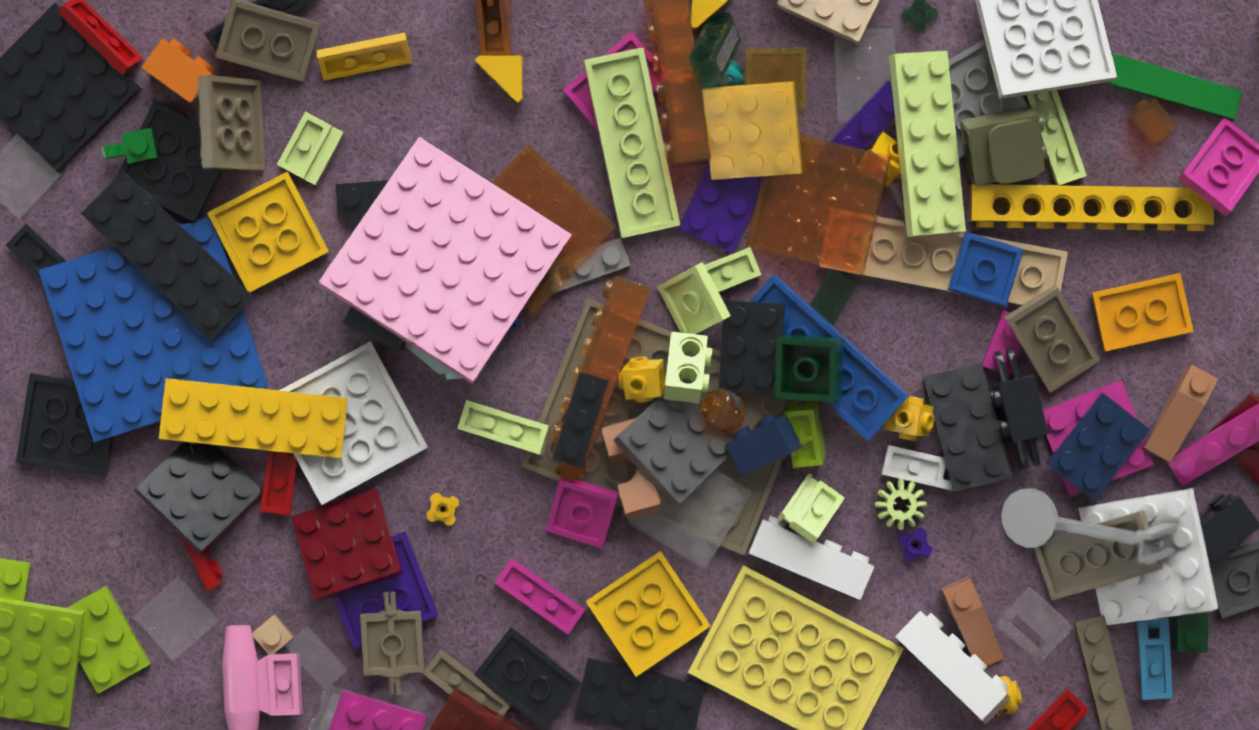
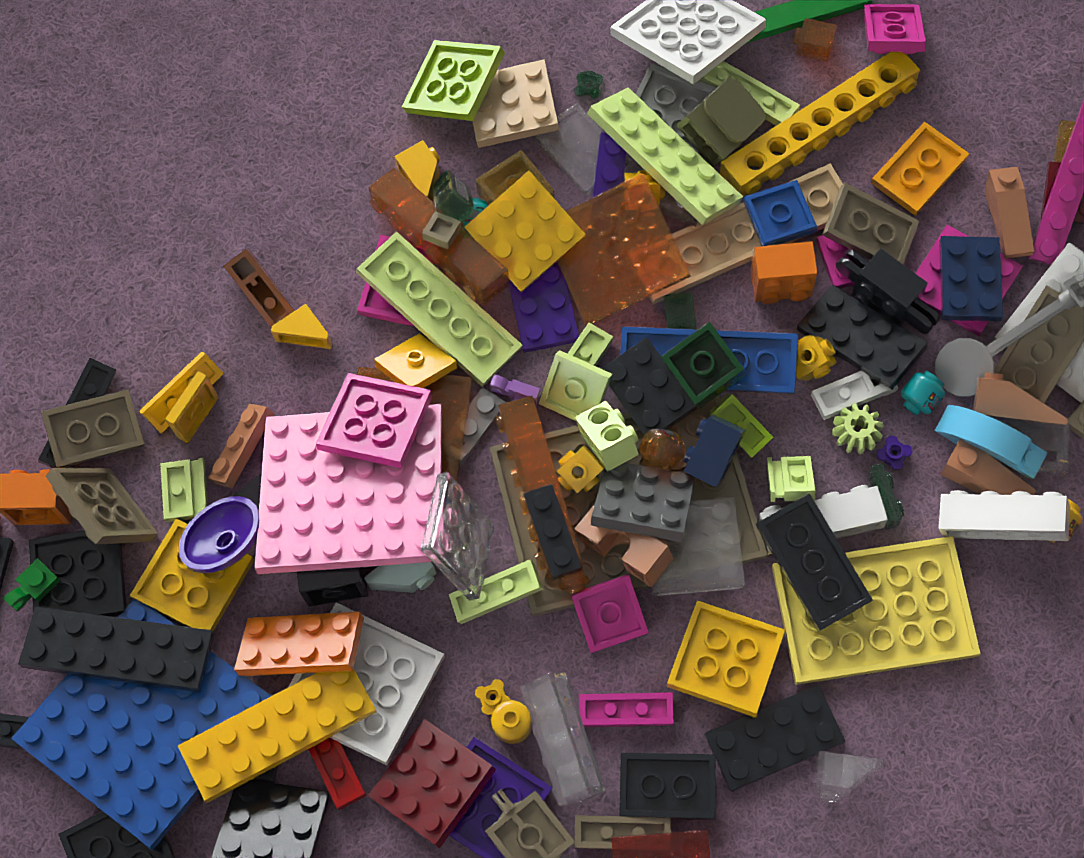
camera: 30 degrees left, 20 degrees down
(309, 210) = (220, 535): none -> dark purple dish
(317, 358) = (299, 644): none -> orange plate
(362, 83) = (192, 407): none -> yellow plate
(382, 143) = (240, 446): none -> nougat plate
(442, 542) = (511, 722): none -> yellow head
(472, 584) = (562, 739): none -> clear brick
(502, 368) = (457, 536): none -> clear plate
(503, 216) = (374, 420): none -> plate
(577, 179) = (415, 362): none -> yellow plate
(647, 272) = (514, 389): none -> medium lavender plate
(679, 81) = (441, 230): none -> dark tan plate
(772, 593) = (813, 562): none -> black plate
(883, 564) = (884, 481): none -> clear green plate
(944, 327) = (783, 272): none -> orange brick
(977, 513) = (922, 393): none -> teal head
(994, 595) = (993, 438): none -> medium azure arch
(1038, 577) = (1007, 400): none -> nougat slope

